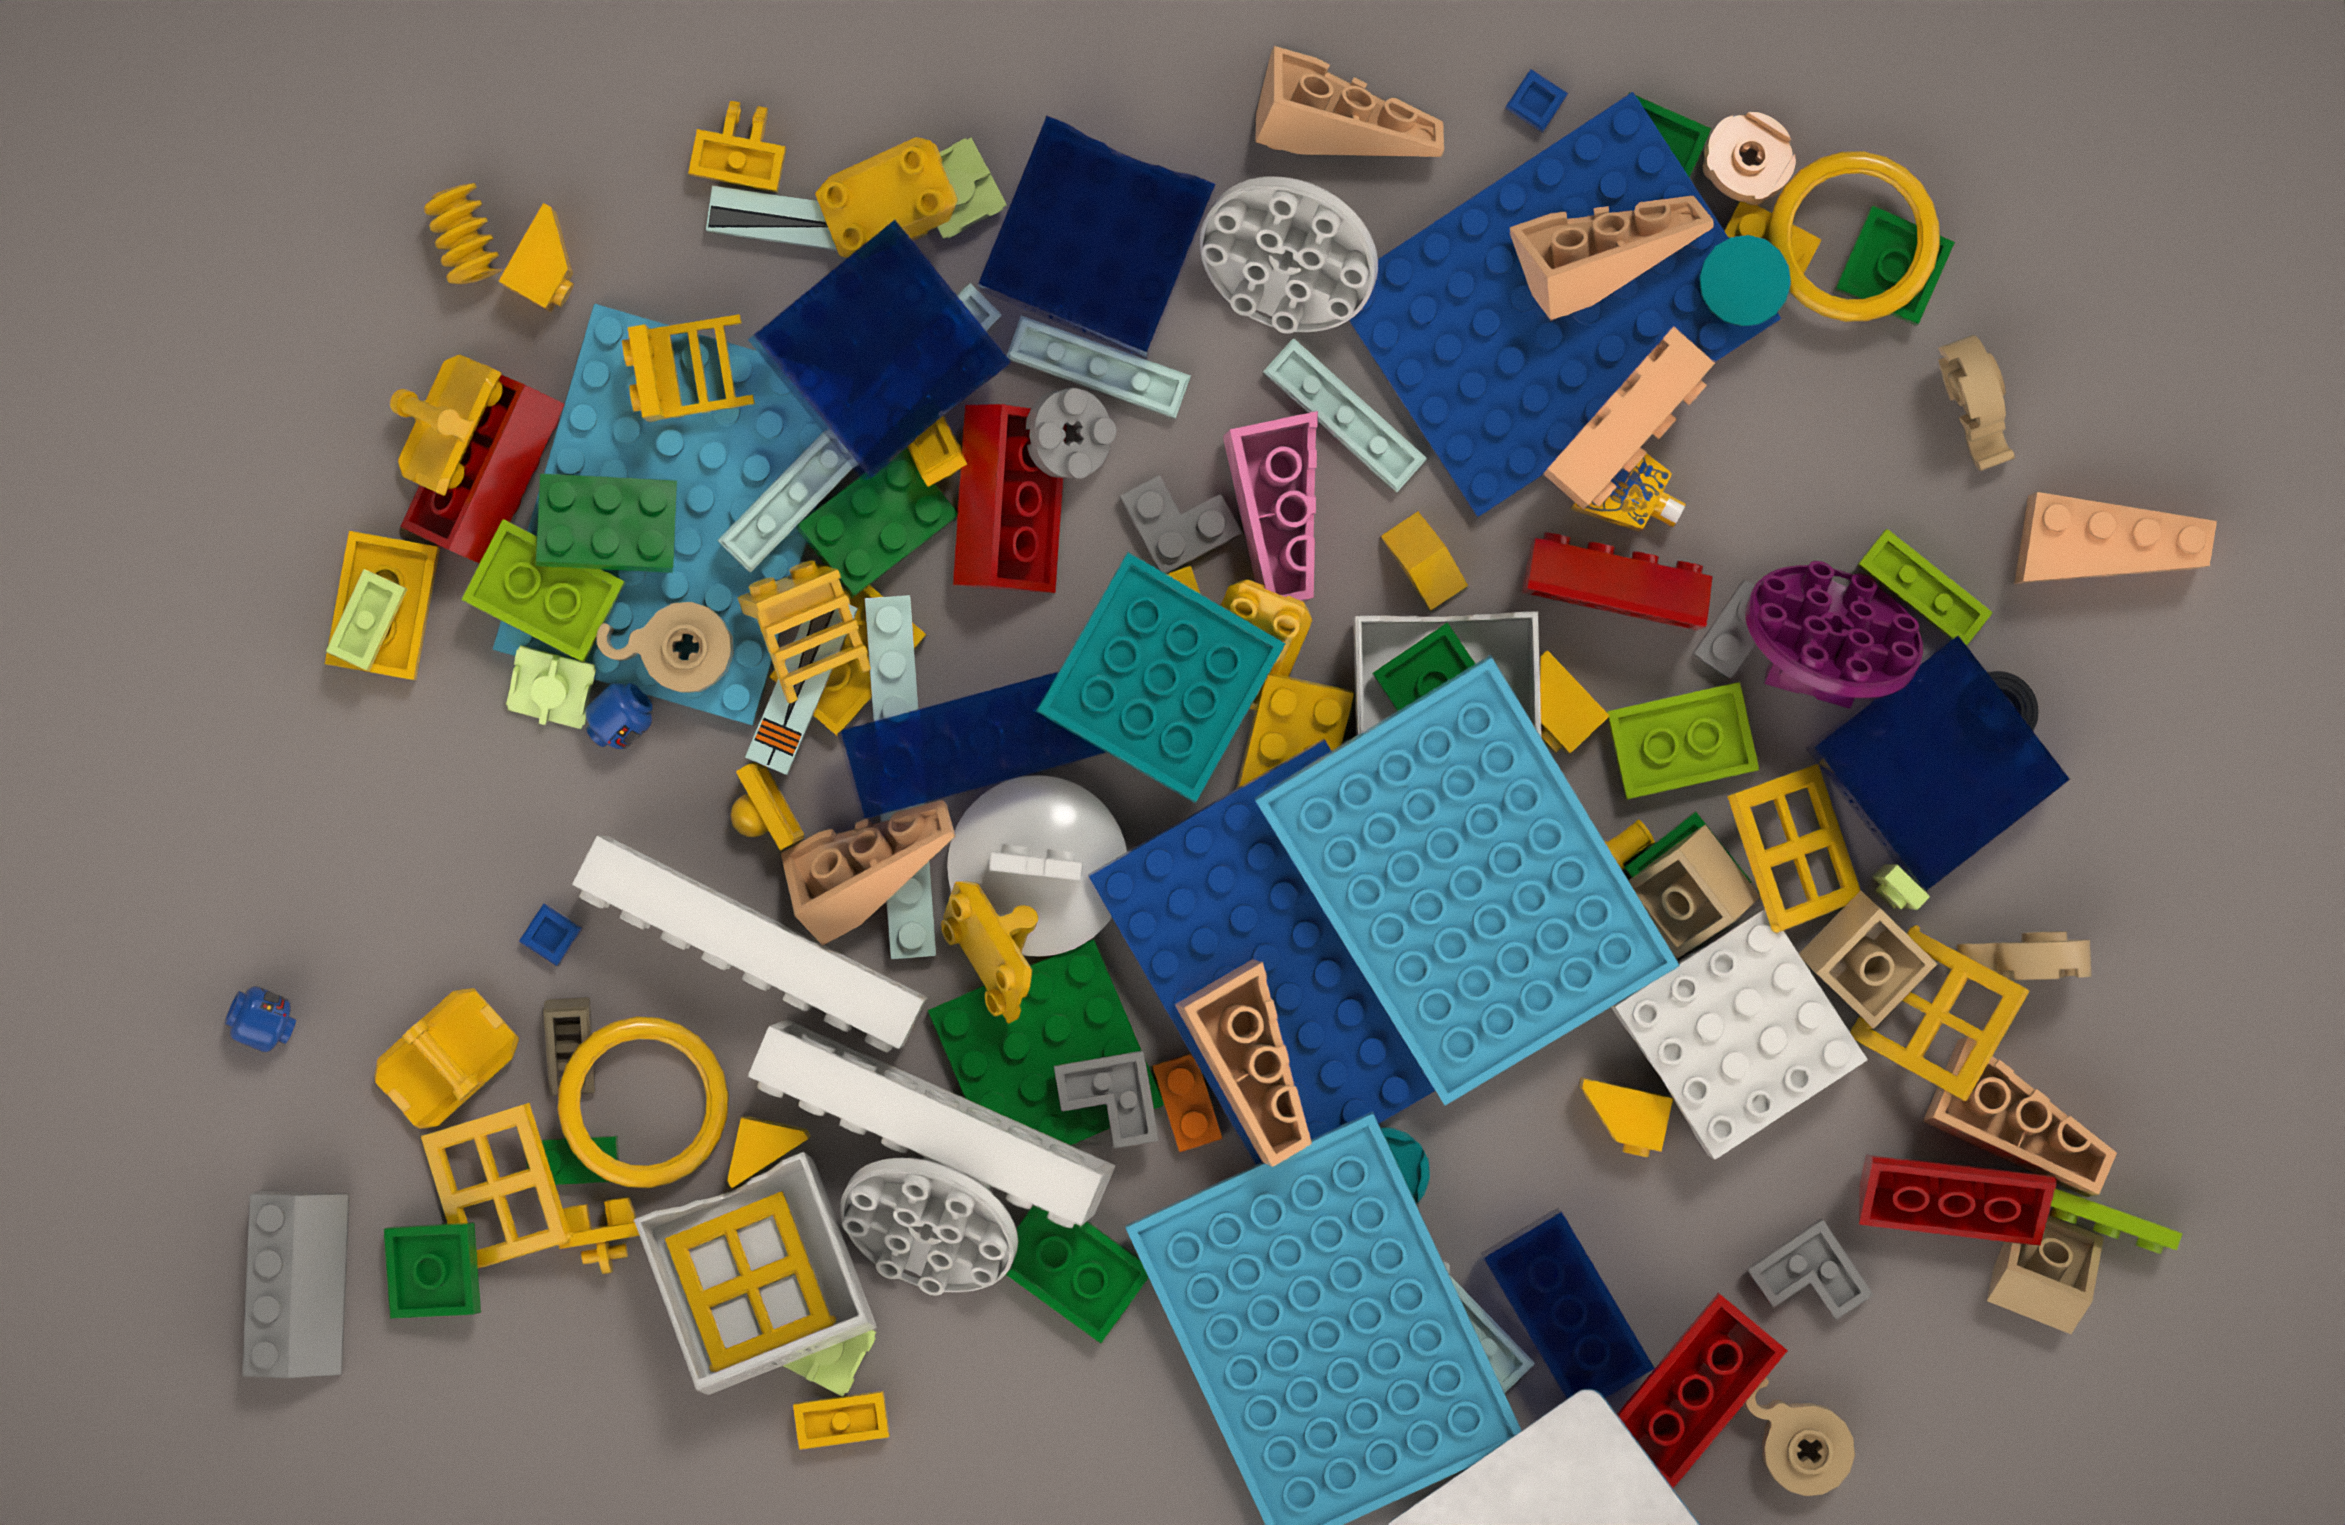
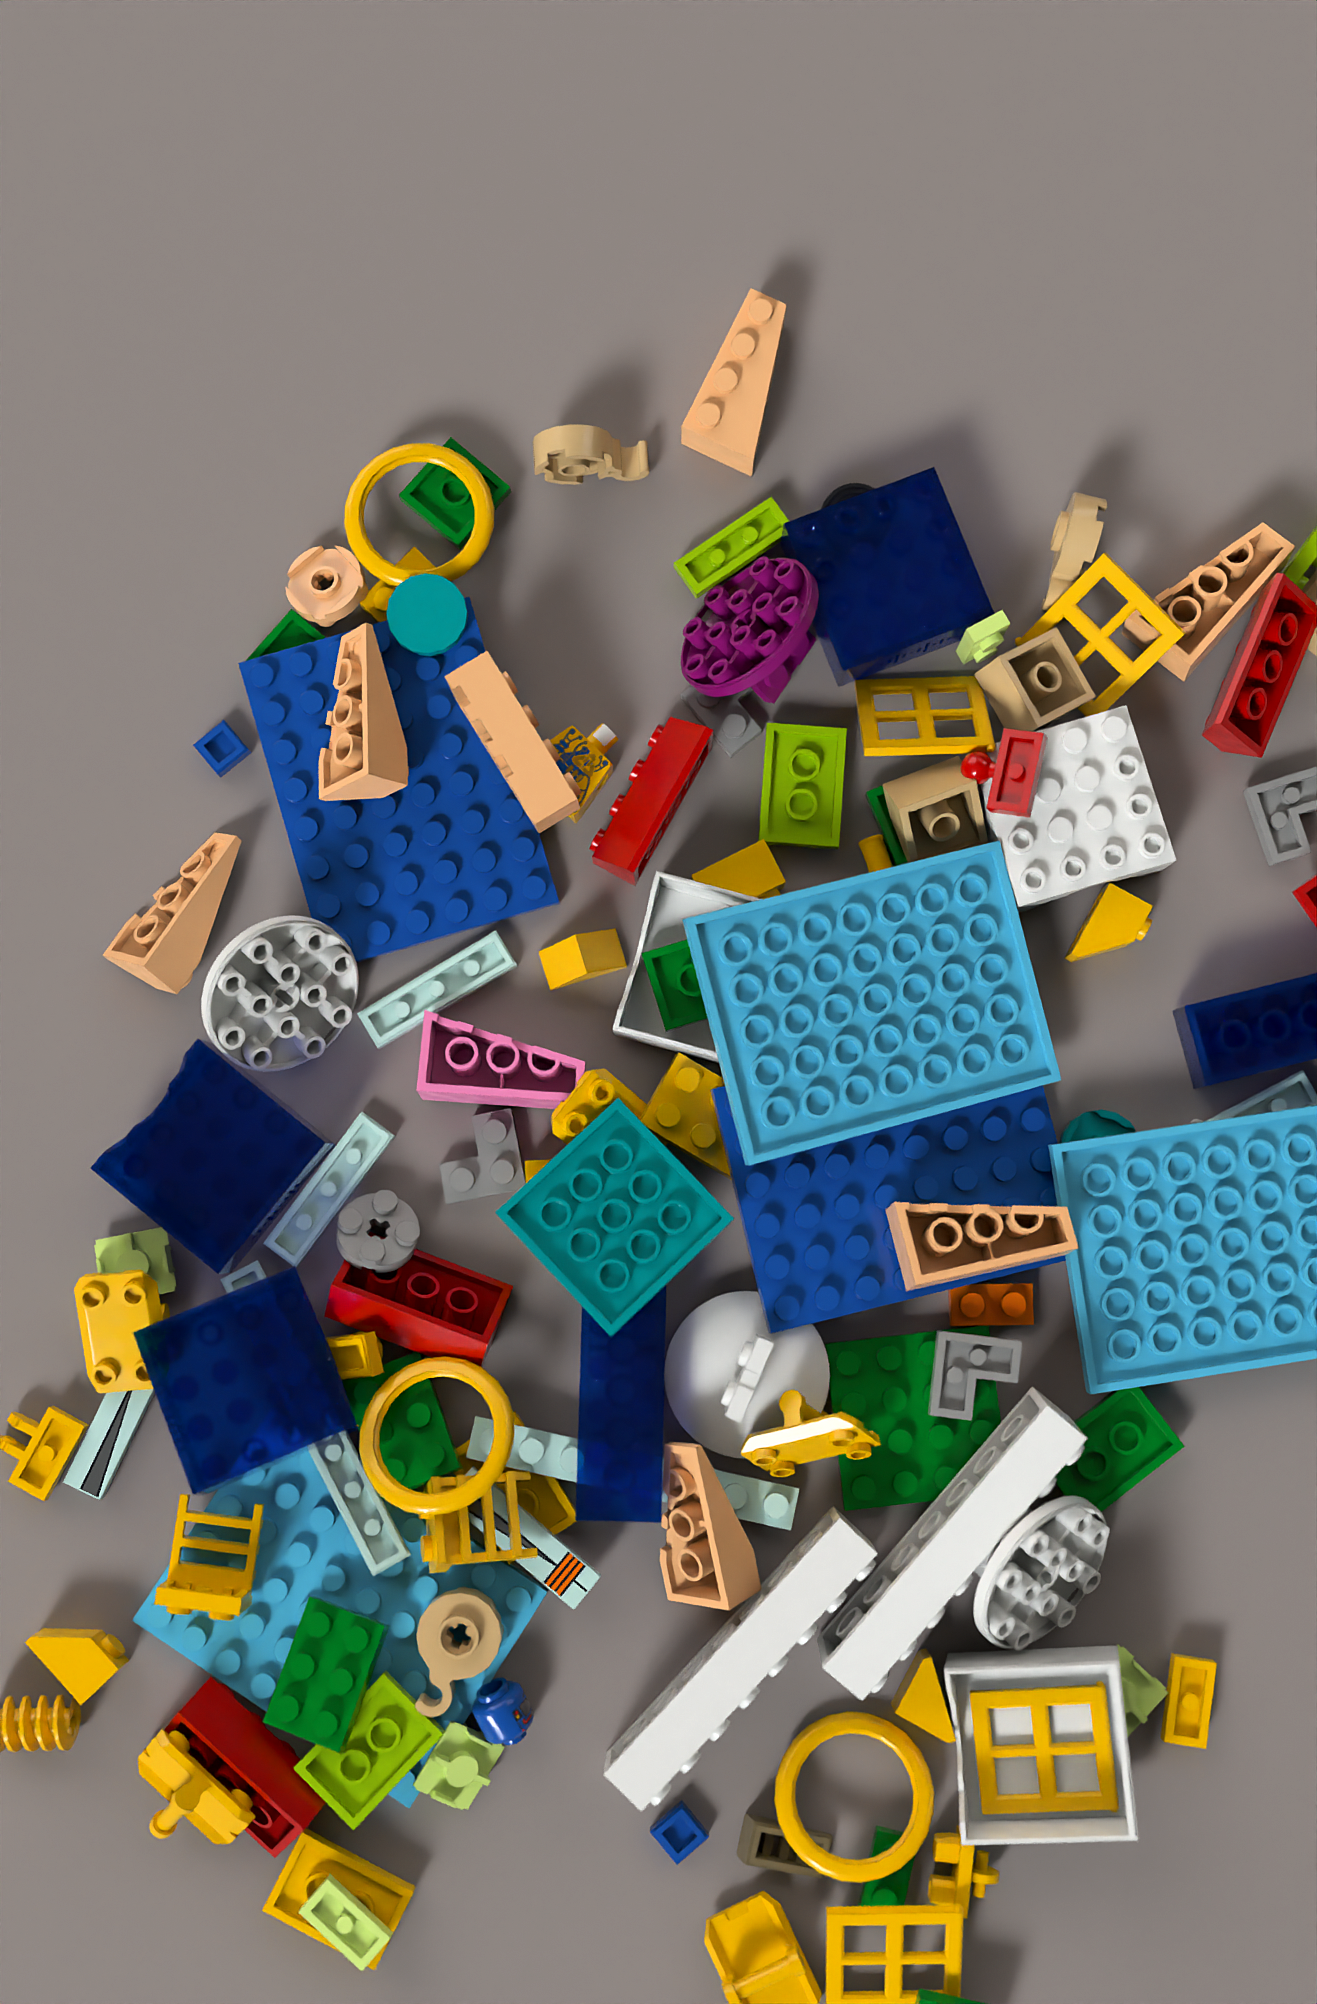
camera: 70 degrees left, 5 degrees down
(764, 808) = (624, 1603): yellow tile -> none
(835, 612) = (482, 1481): none -> yellow wedge
(1754, 958) = (1013, 773): none -> red plate

